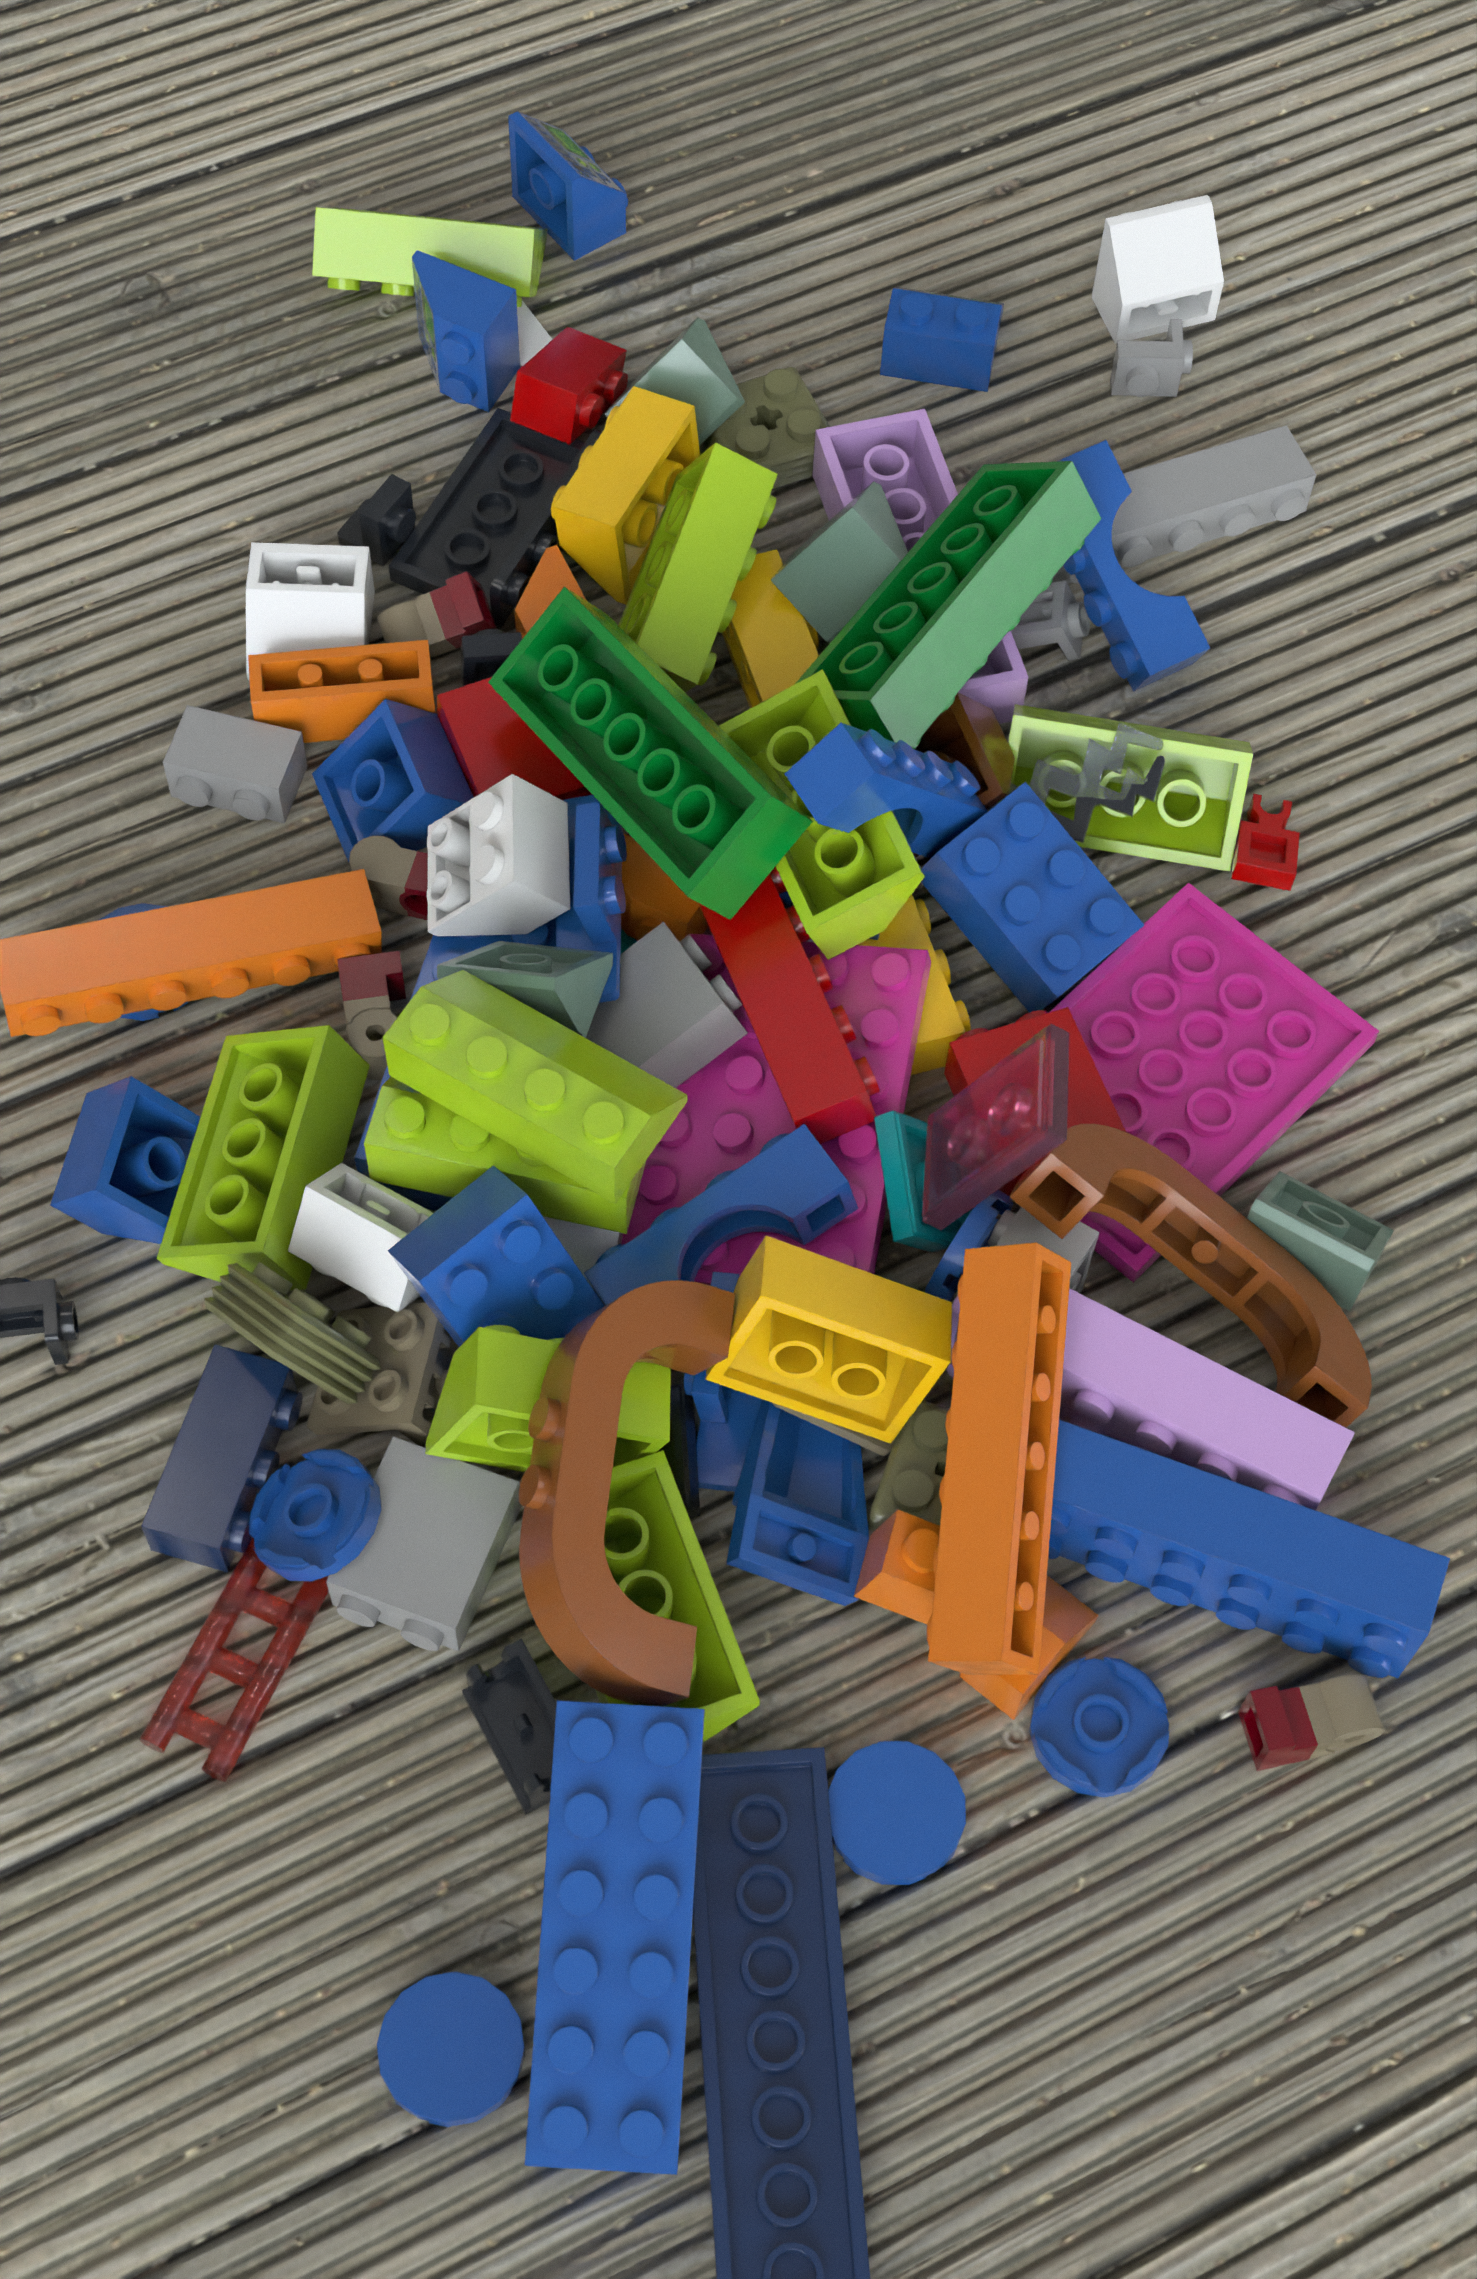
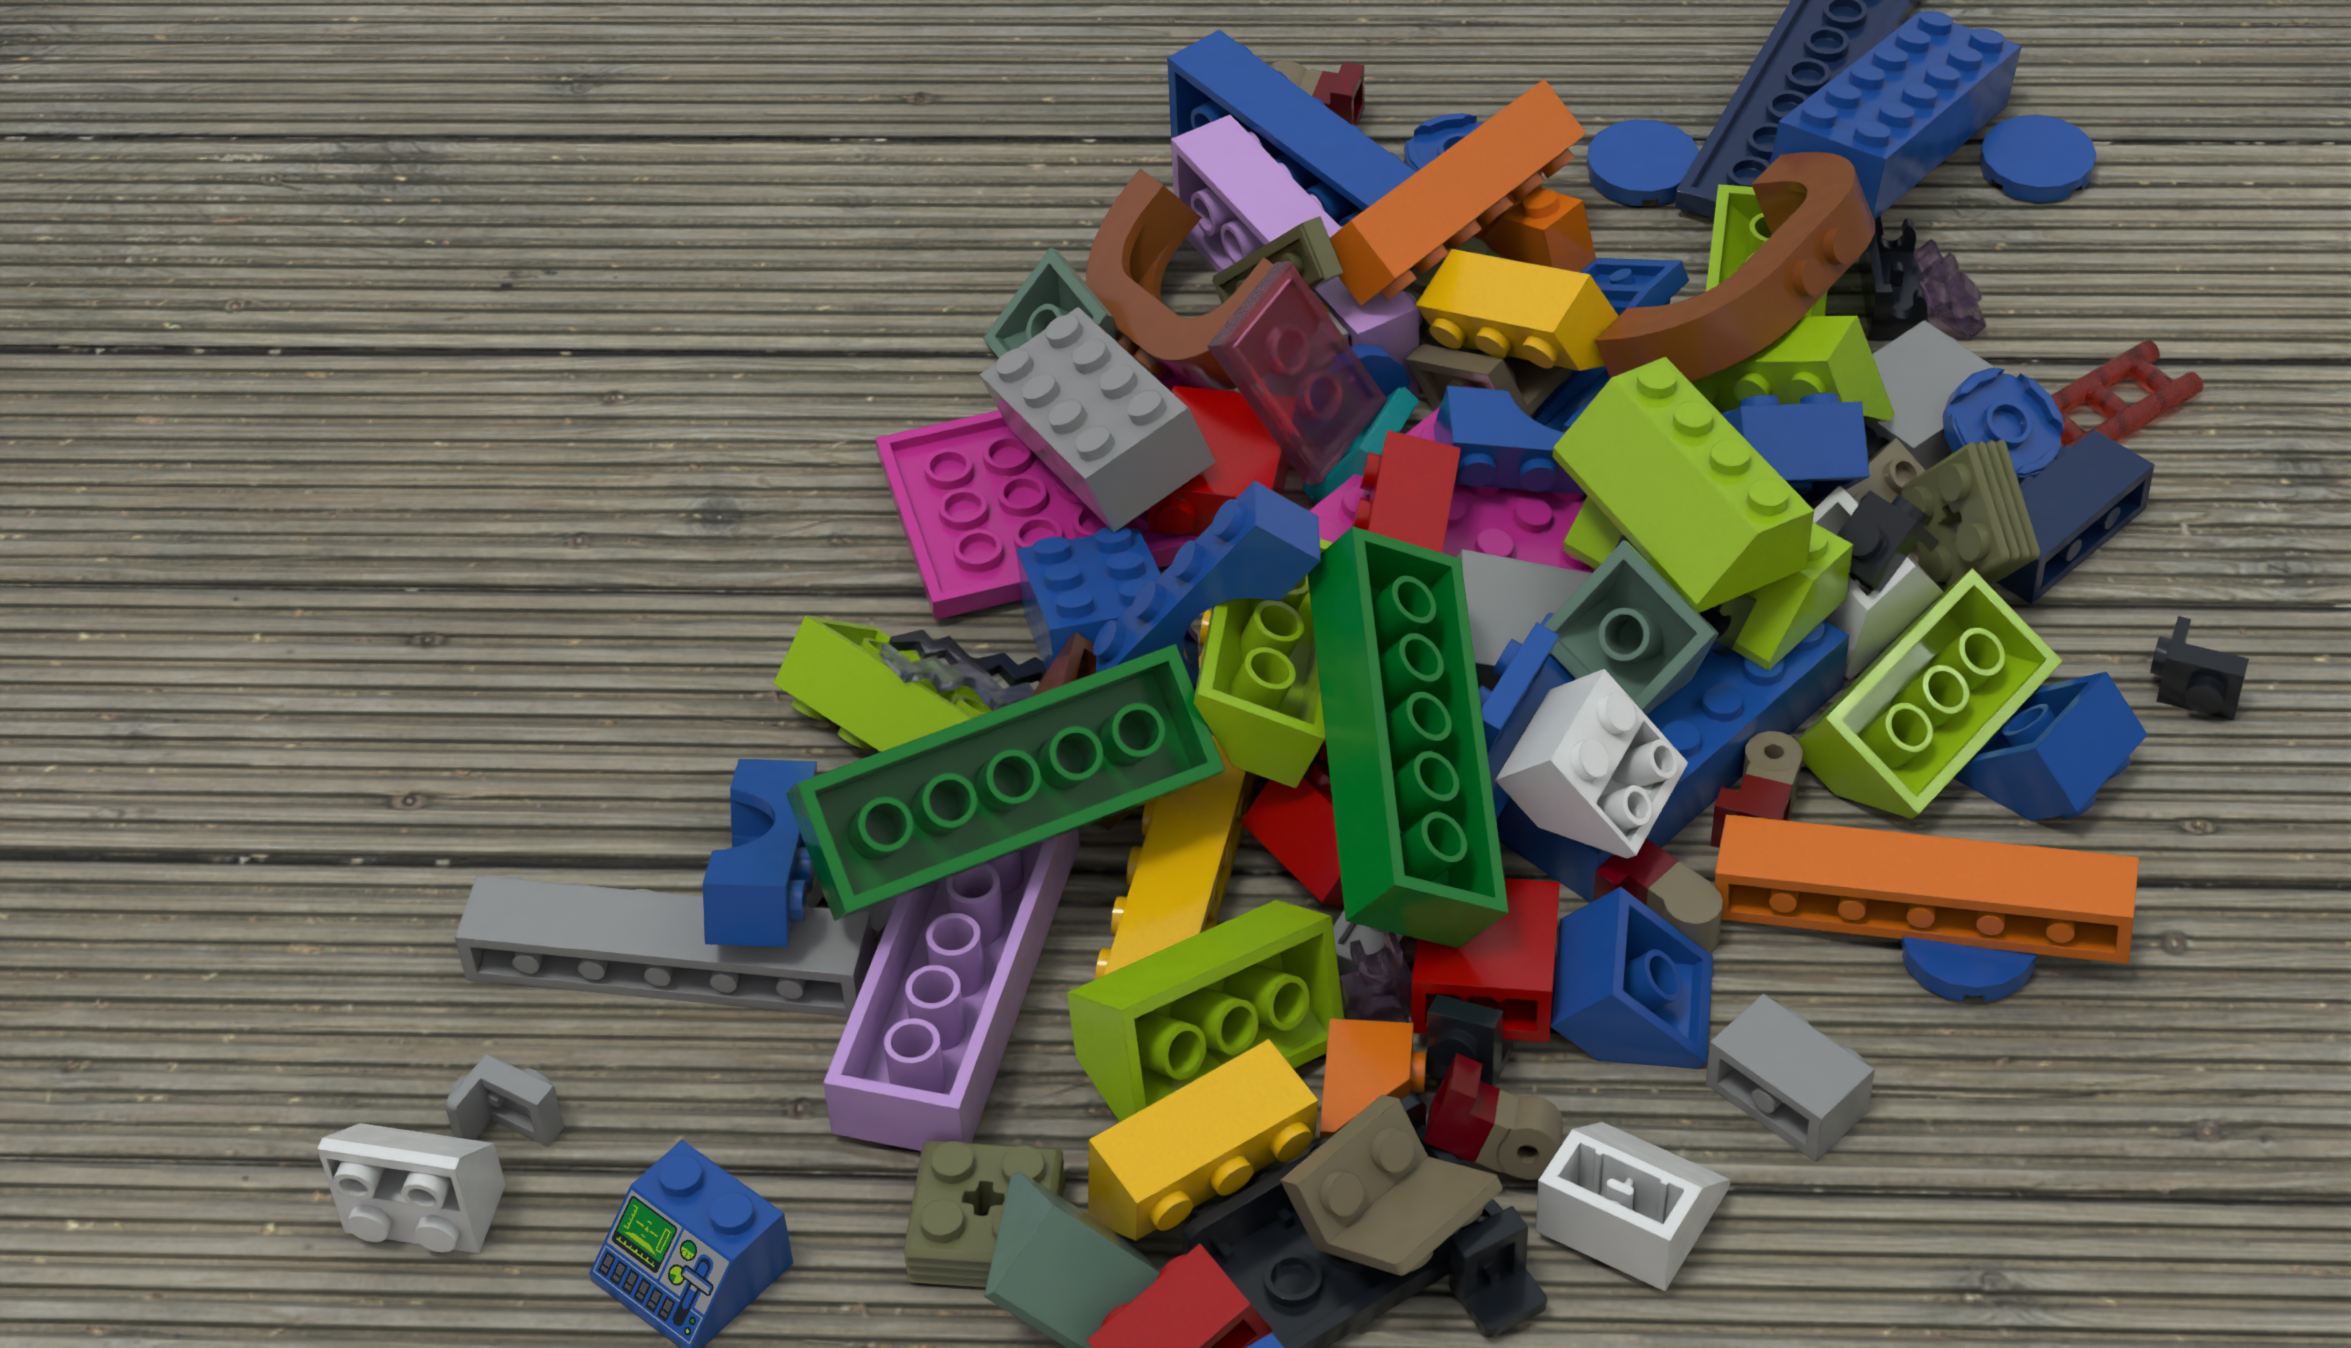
camera: 145 degrees left, 15 degrees down
(337, 688) = (1642, 1079): orange brick -> none
(347, 1205) = (1884, 537): none -> black bracket
(454, 1734) = (1948, 293): none -> clear purple plate
(462, 496) = (1380, 1196): none -> dark tan bracket
(843, 562) = (1032, 950): sand green slope -> none
(1102, 1273) = (1303, 245): none -> olive tile
(1166, 1043) = (1097, 418): none -> light grey brick
(1265, 849) = (838, 598): red plate -> none

